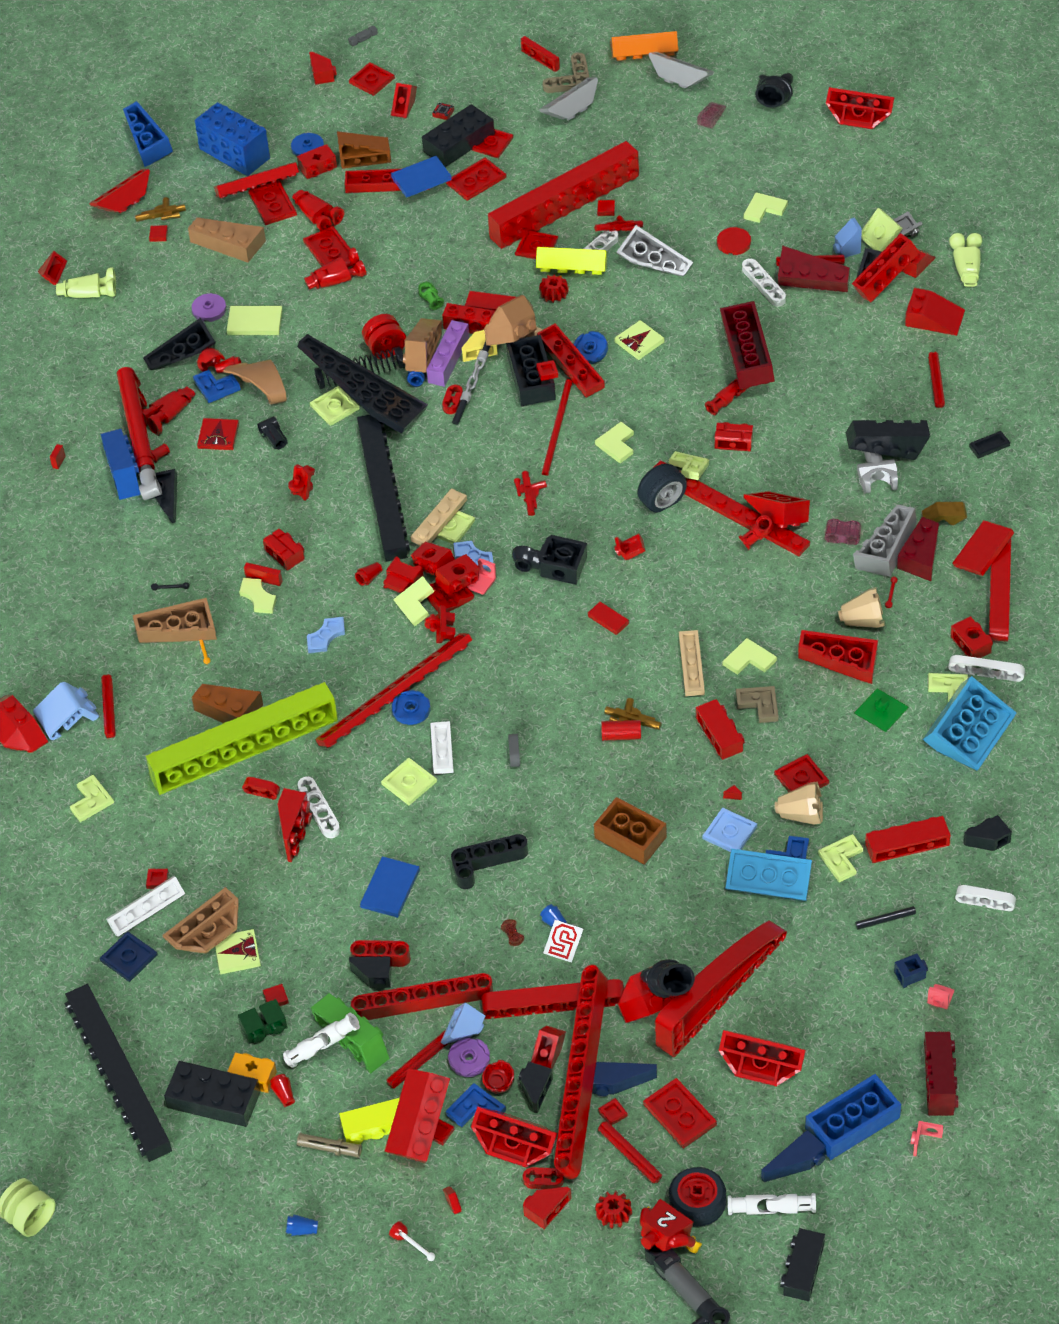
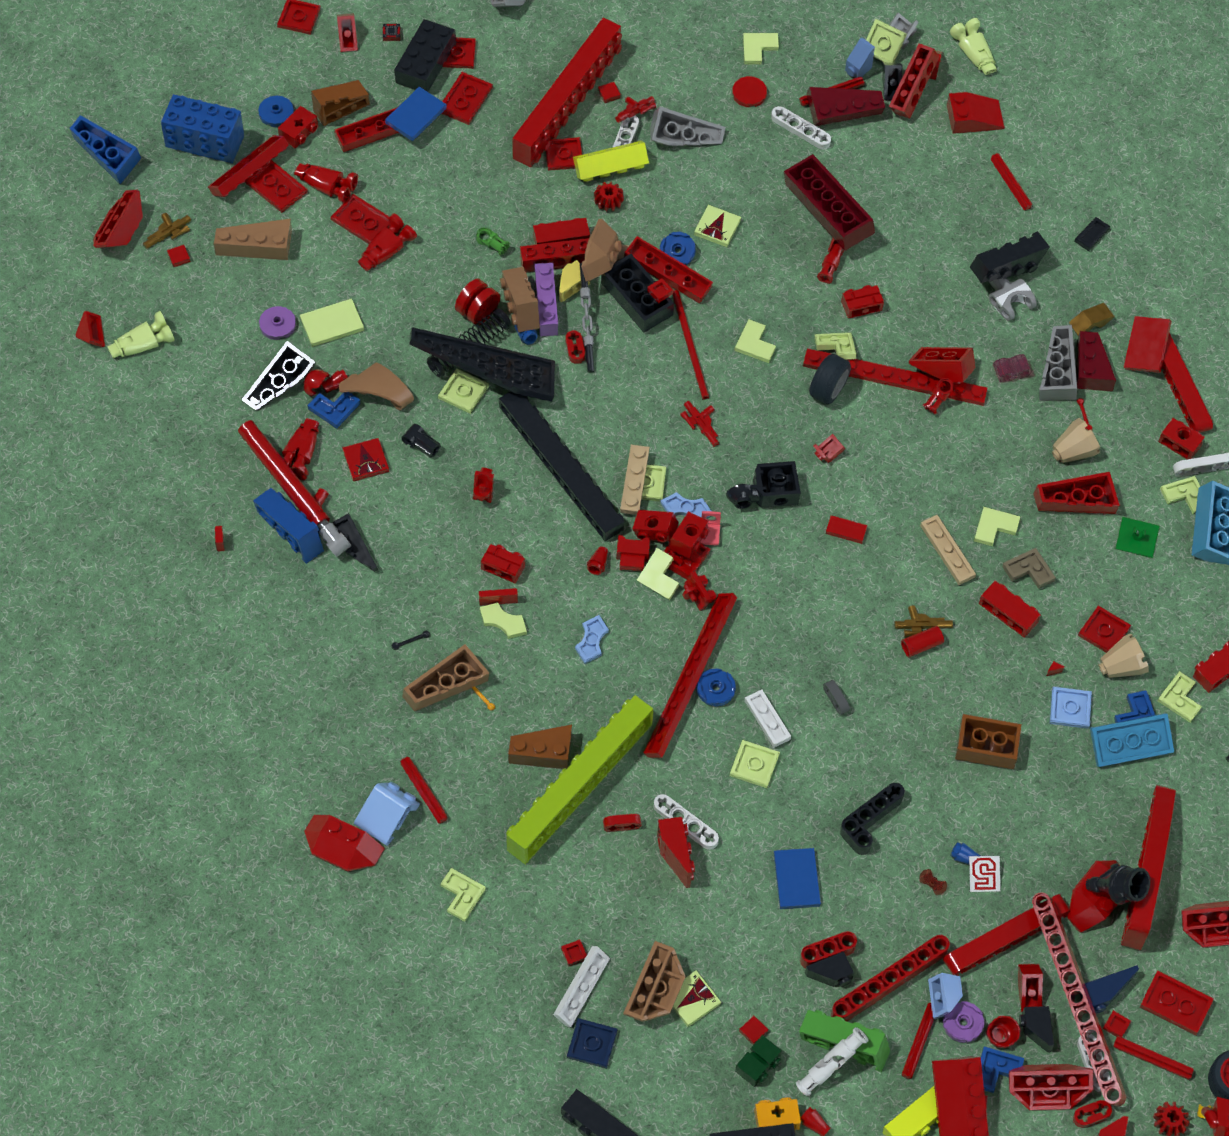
camera: 30 degrees left, 10 degrees up
(322, 68) = (243, 20): red slope -> none

